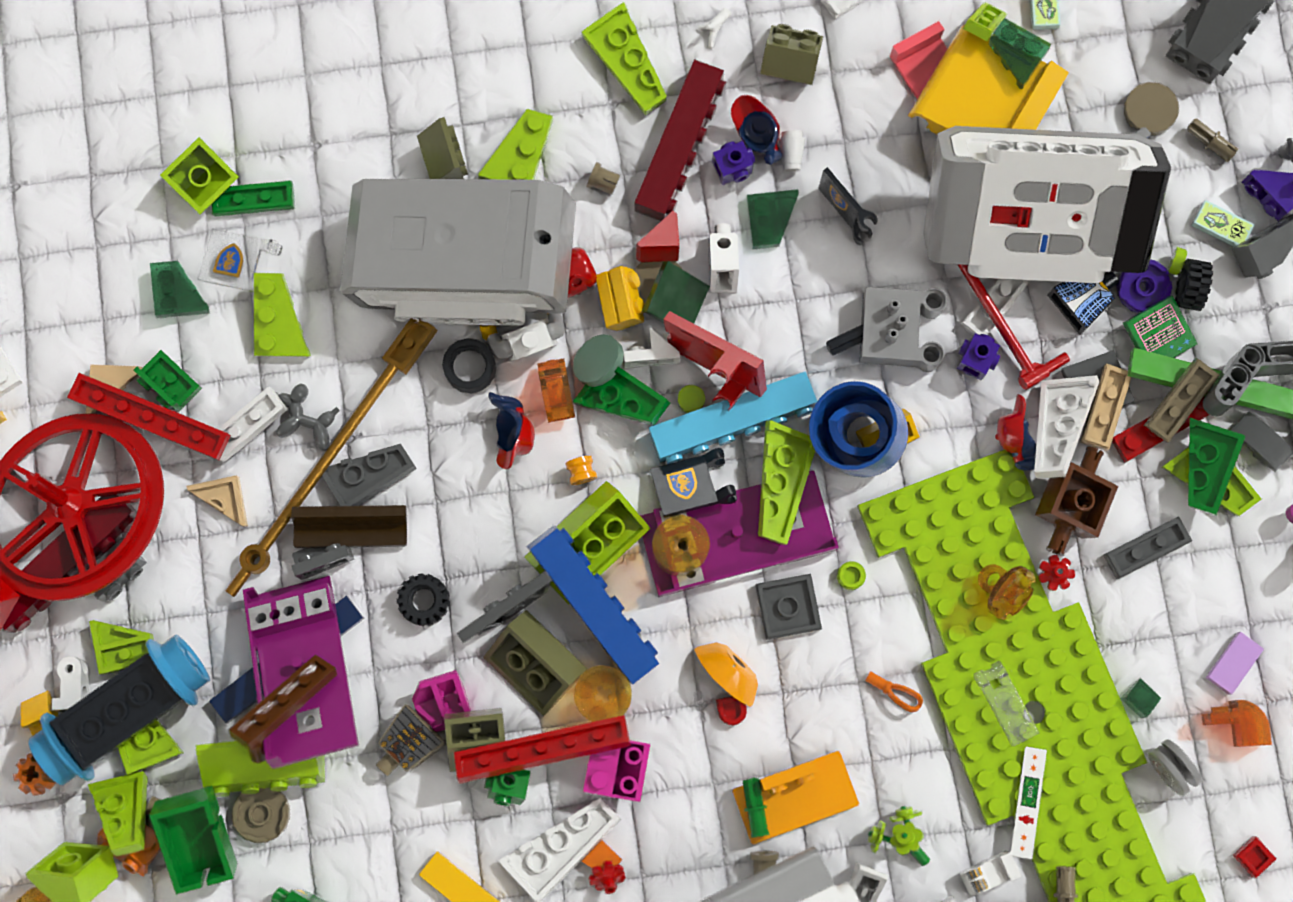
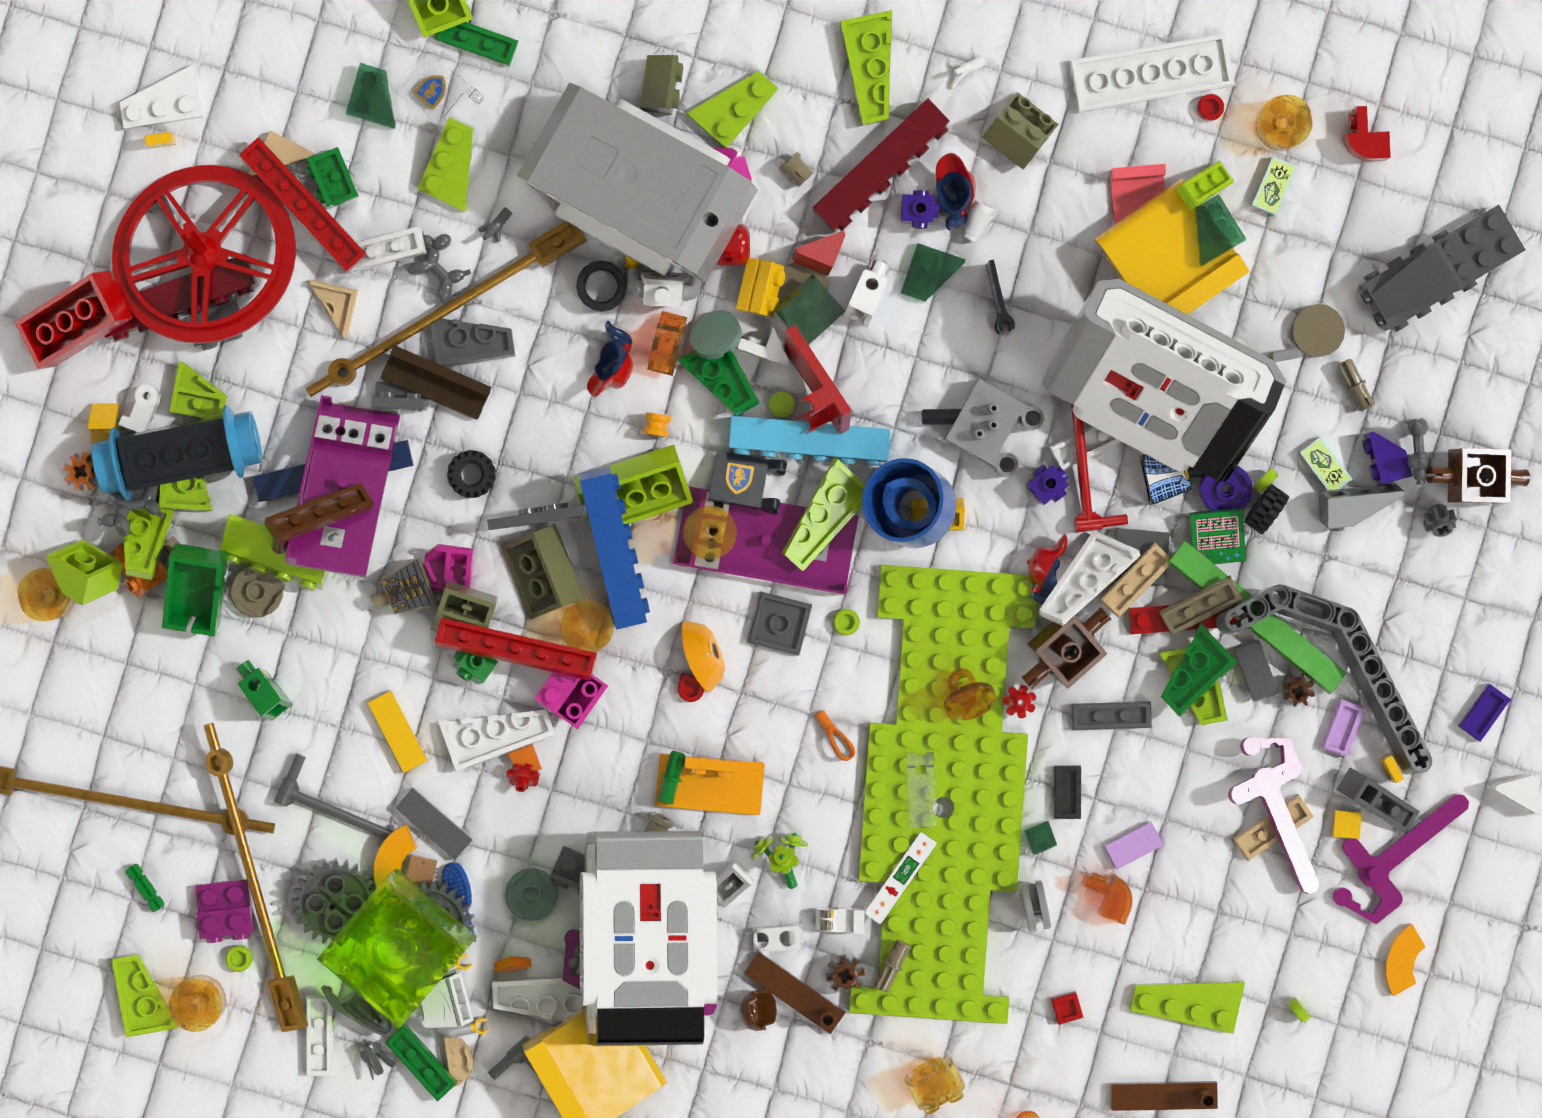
camera: 20 degrees right, 10 degrees up
(88, 789) = (123, 507): none -> dark grey piece
(344, 355) = (496, 225): none -> dark grey bar
(1144, 641) = (1067, 791): none -> pearl dark grey tile

